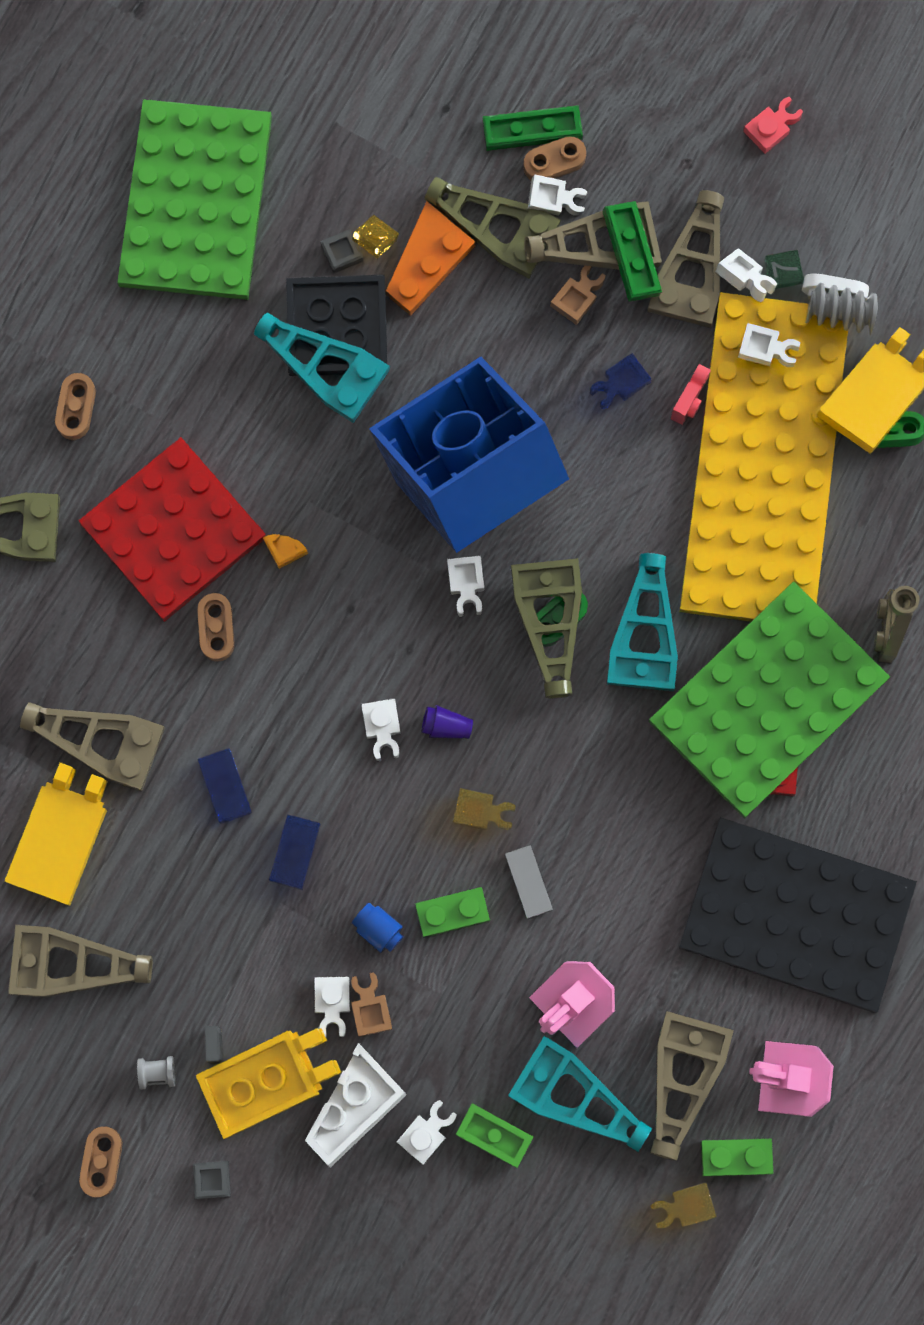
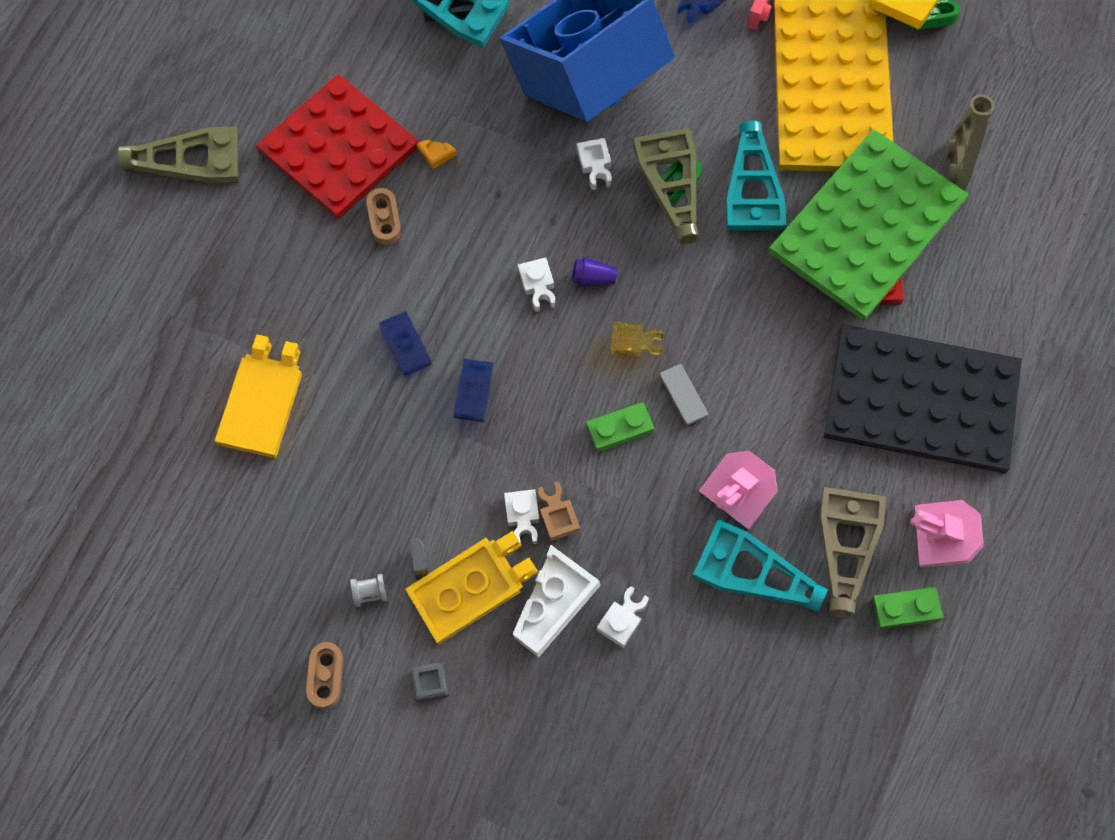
camera: 10 degrees left, 10 degrees down
(31, 962) = (244, 505): dark tan plate -> none
(74, 407) = (244, 61): medium nougat plate -> none
(134, 756) = (322, 327): dark tan plate -> none
(378, 928) = (556, 444): blue brick -> none
(494, 1135) = (685, 612): bright green plate -> none
(690, 1205) = (872, 654): clear yellow plate -> none

